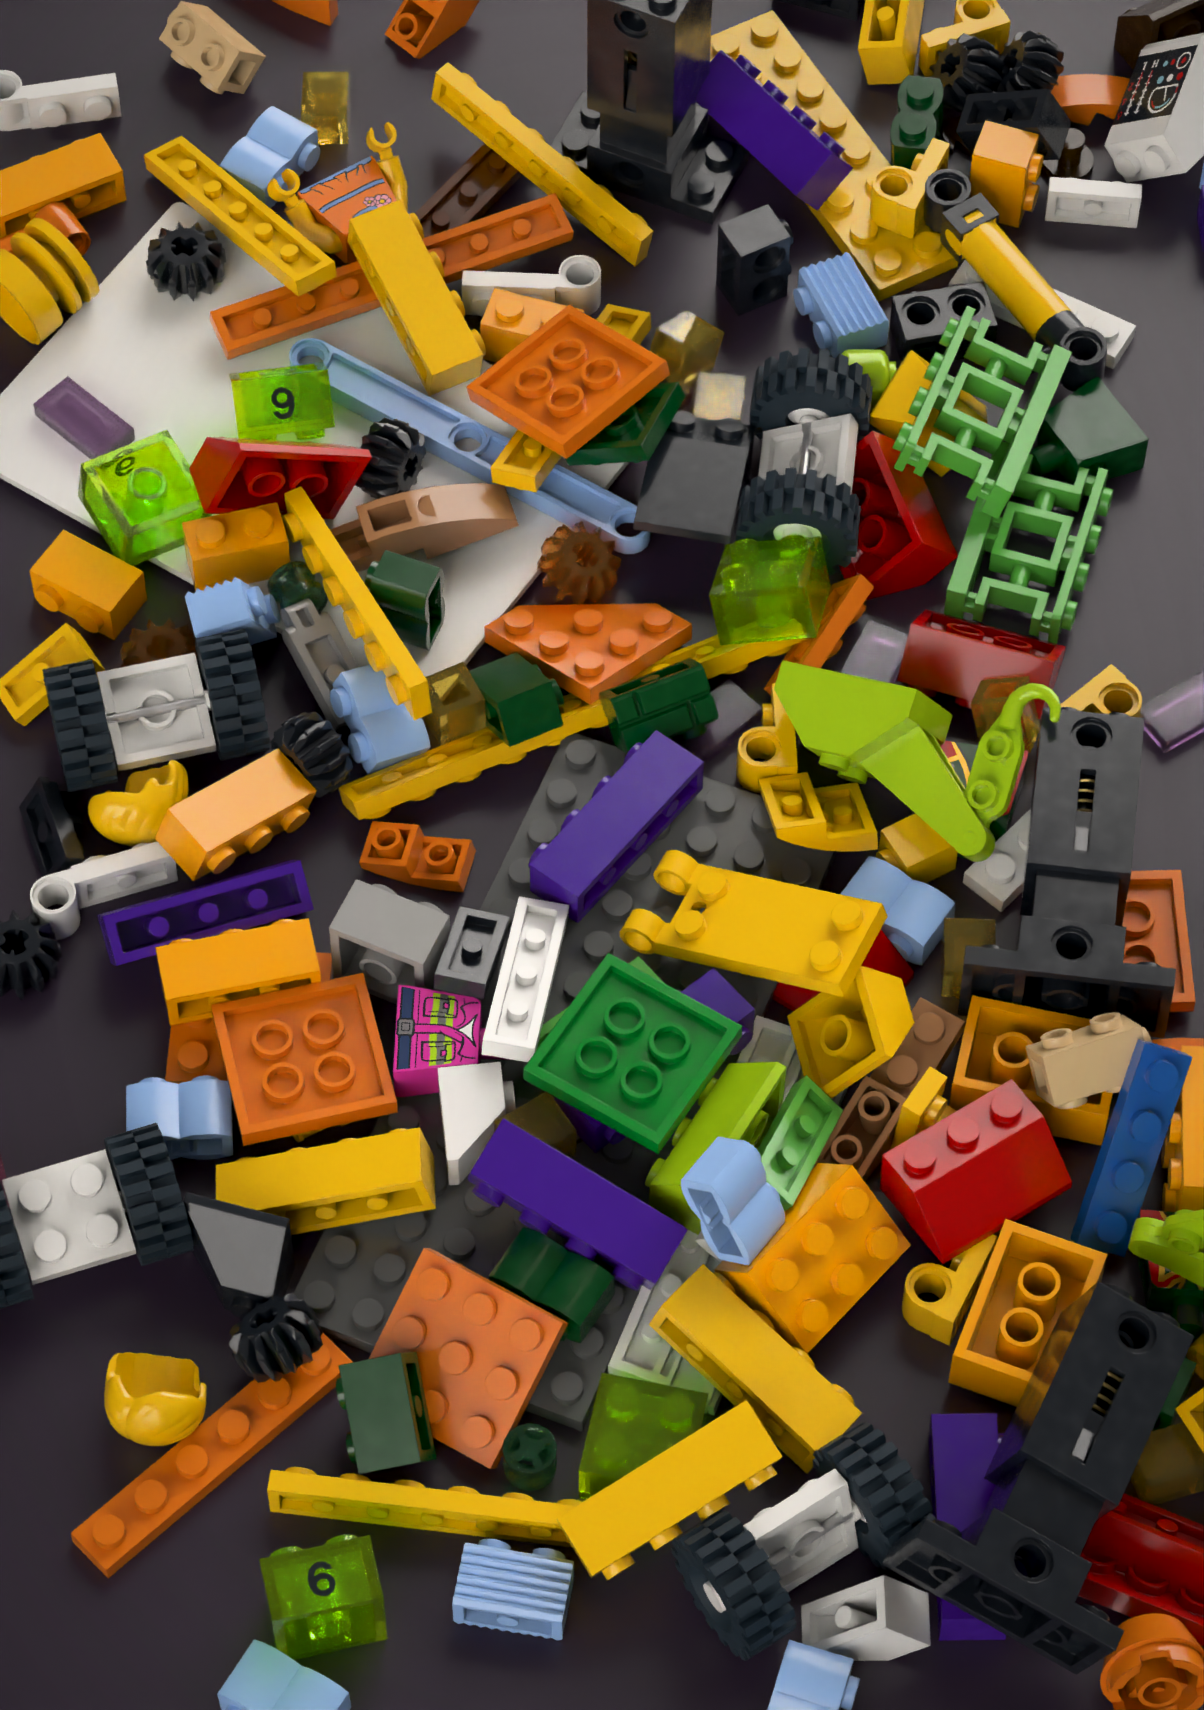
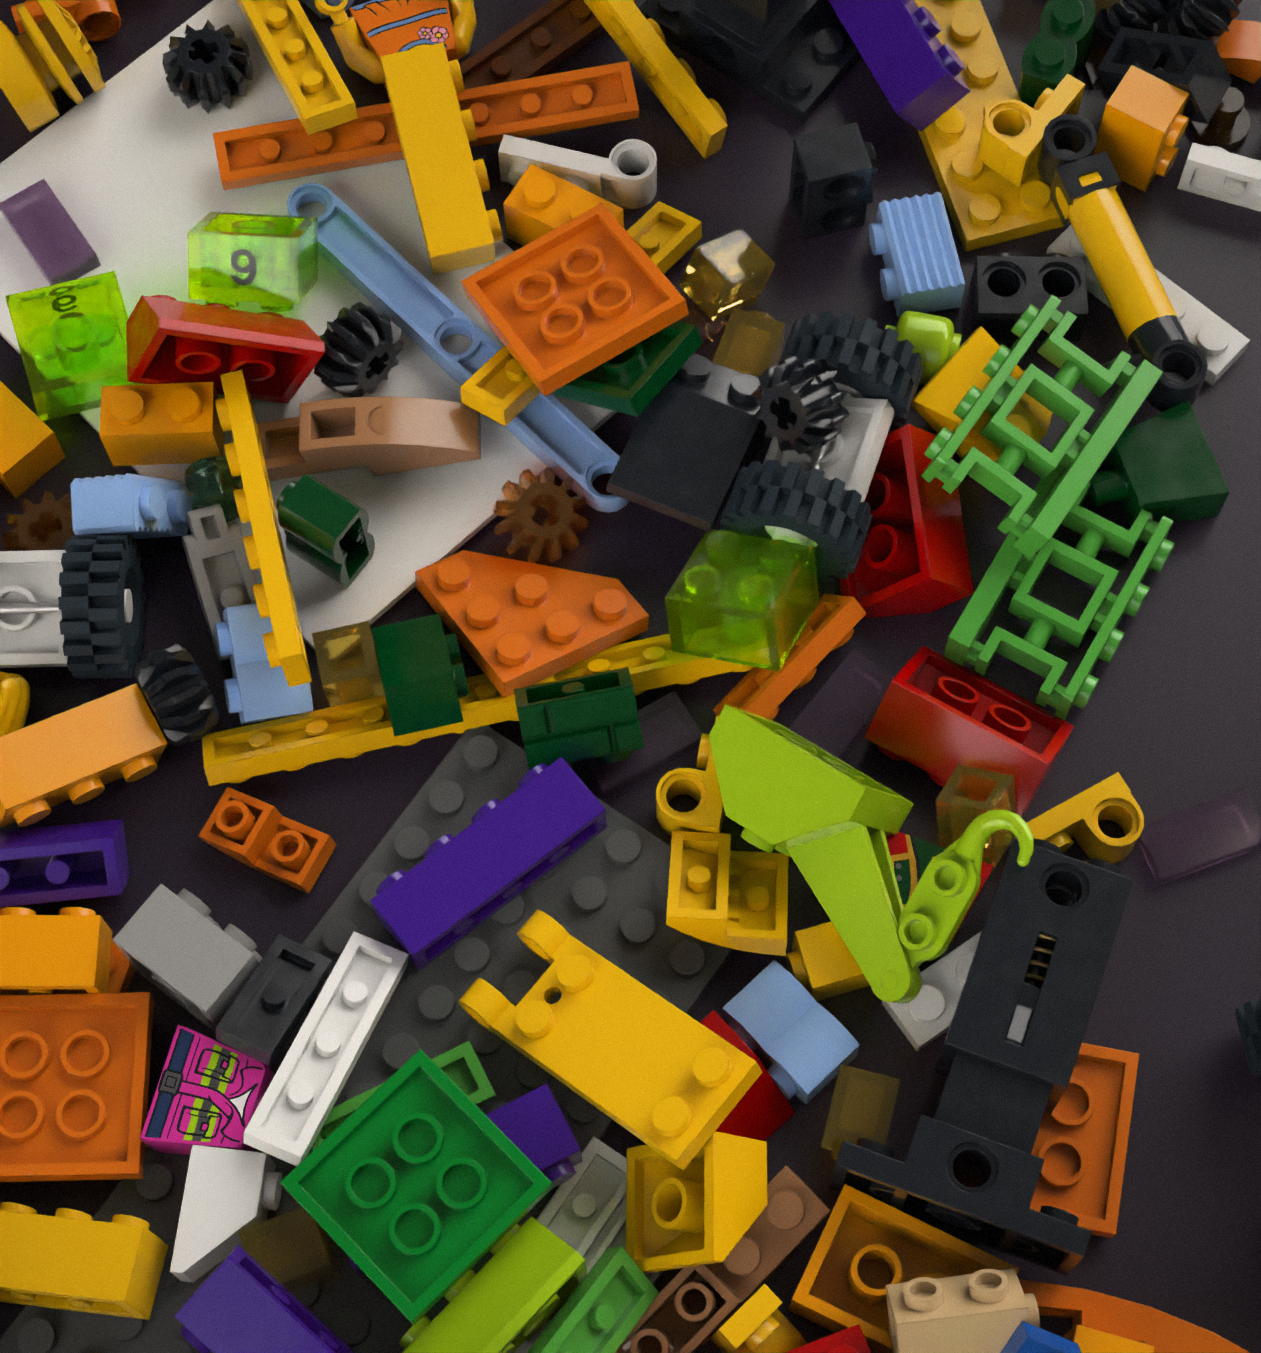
camera: 15 degrees right, 10 degrees up
(781, 427) = (800, 404): none -> black gear

